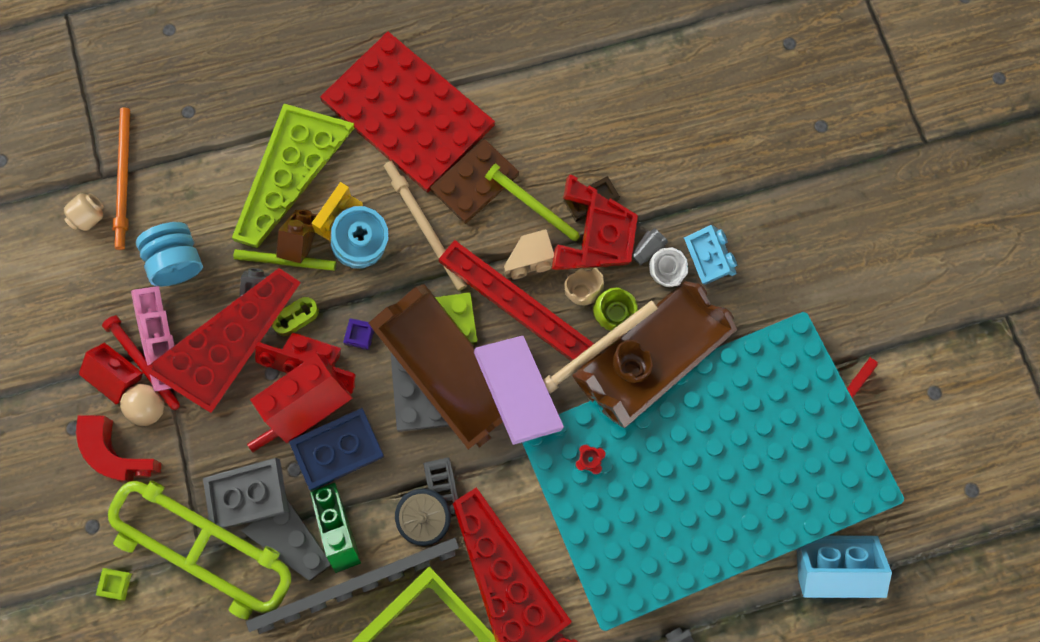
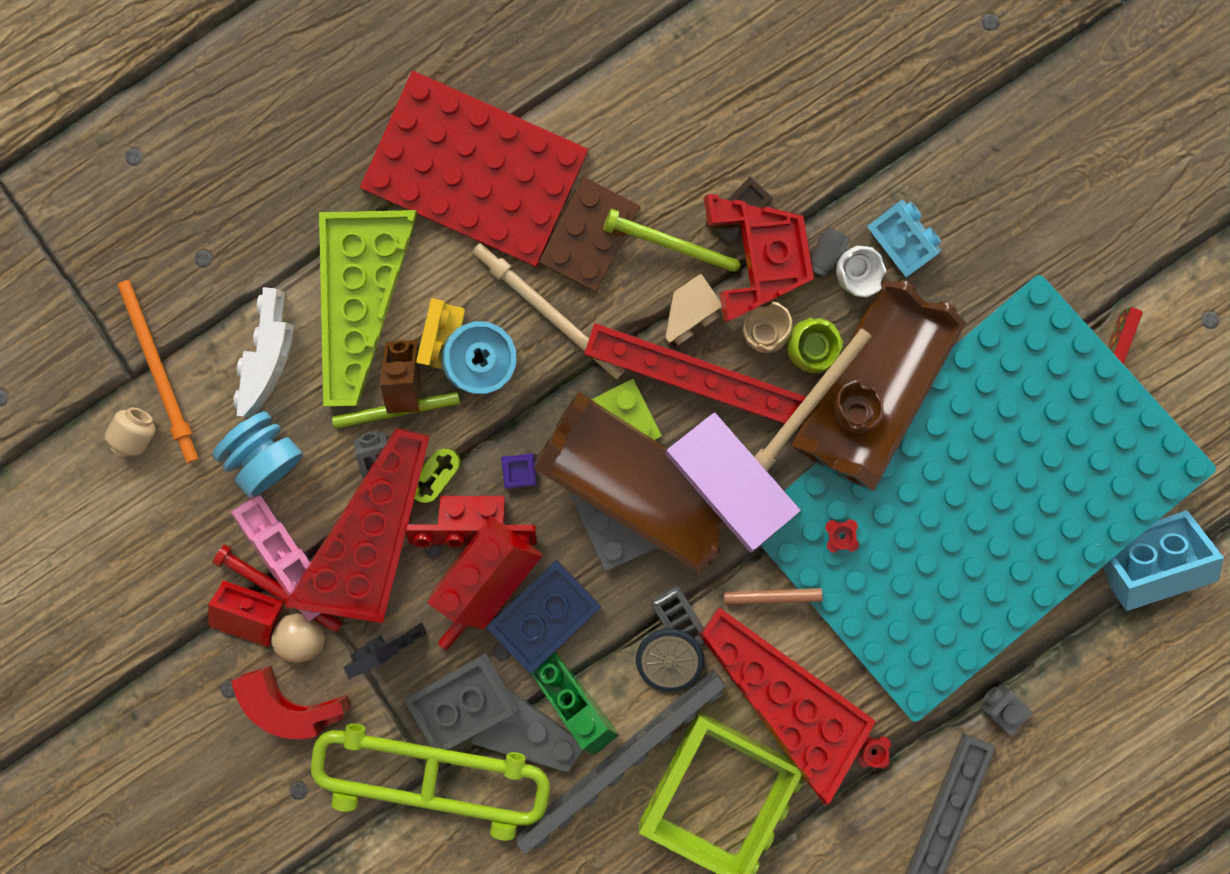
camera: 20 degrees left, 15 degrees up
(113, 584) = (349, 846): lime tile -> none
(199, 197) = (262, 369): none -> white slope
(201, 428) = (379, 650): none -> black wing
(522, 492) = (773, 596): none -> nougat bar

